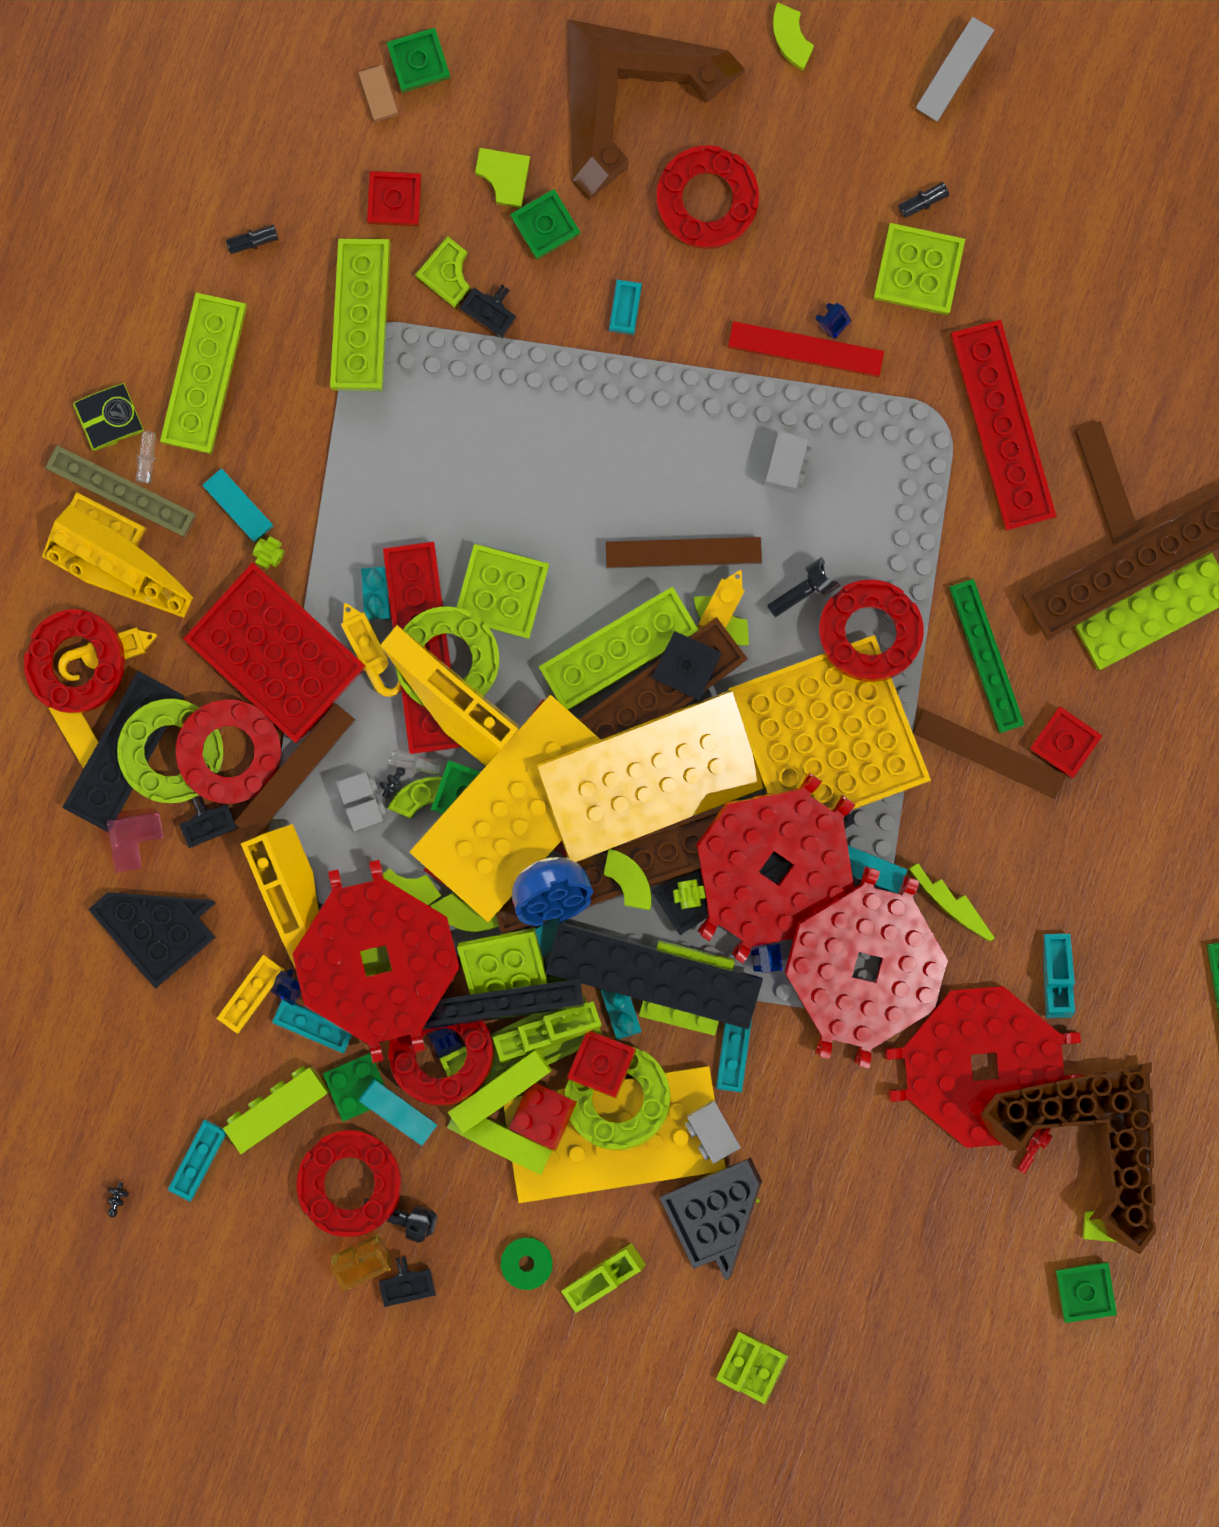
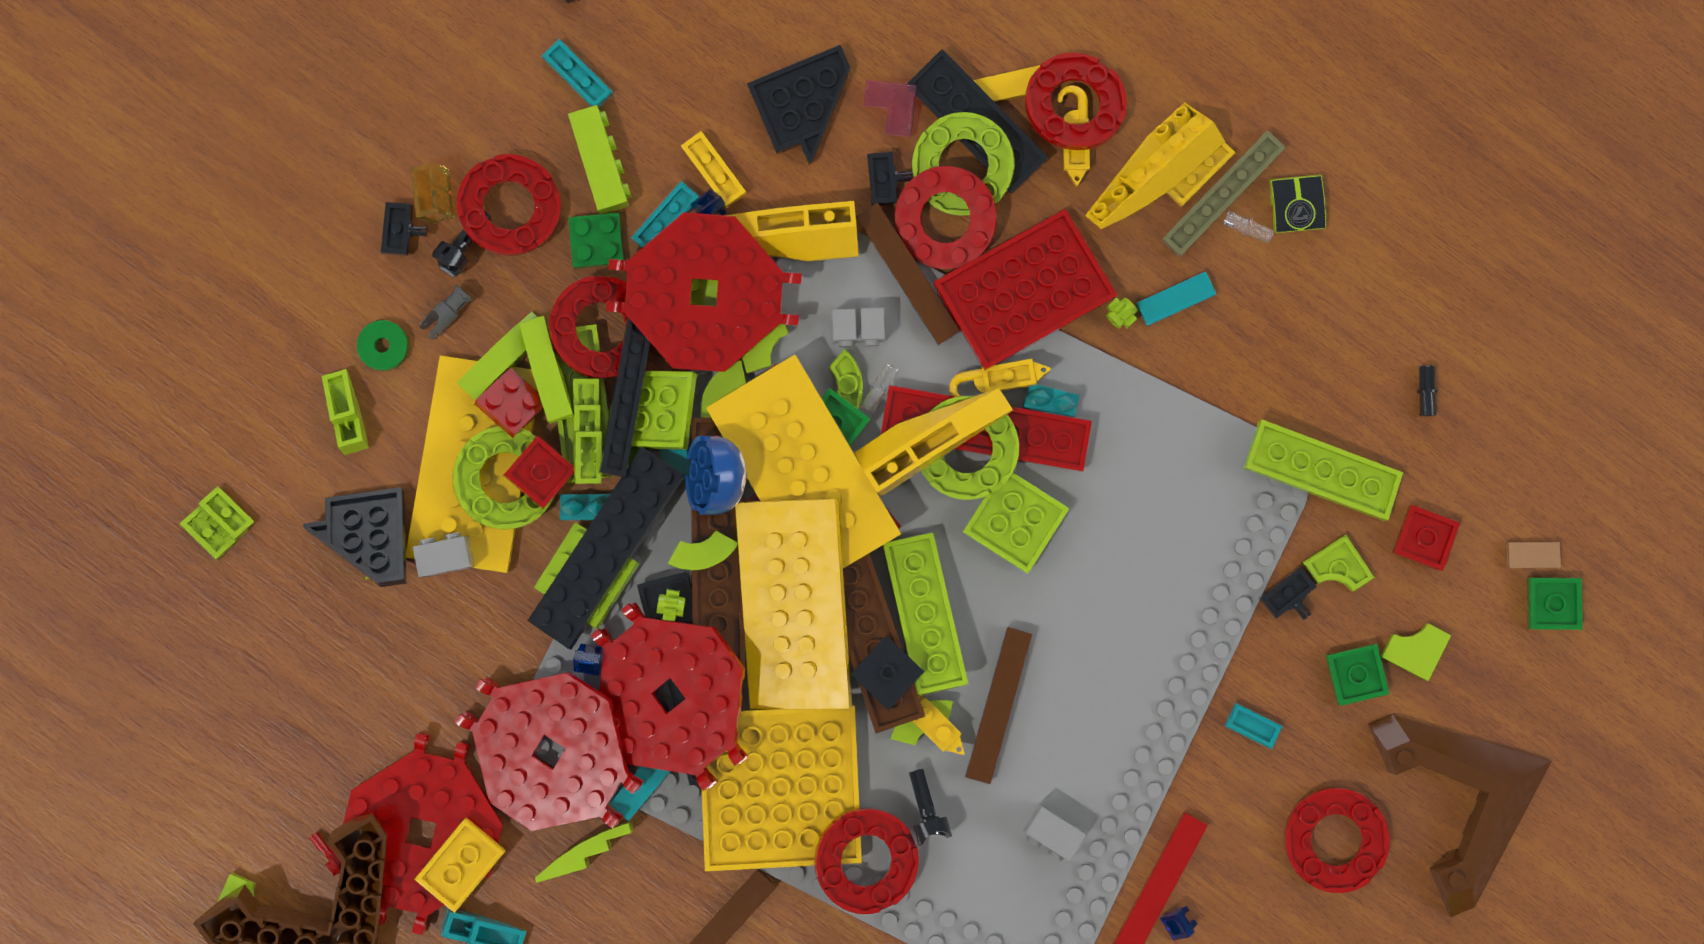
camera: 105 degrees right, 0 degrees up
(203, 373) = (1312, 305): lime plate -> none
(393, 781) = (863, 356): black hair -> none
(398, 1112) = (559, 270): teal tile -> none
(445, 1042) = (610, 334): clear blue tile -> none
(473, 1210) = (446, 311): none -> dark grey piece
(733, 1058) = (506, 597): teal tile -> none
(1002, 1017) = (460, 865): none -> yellow tile
(1086, 1292) = (179, 859): green plate -> none

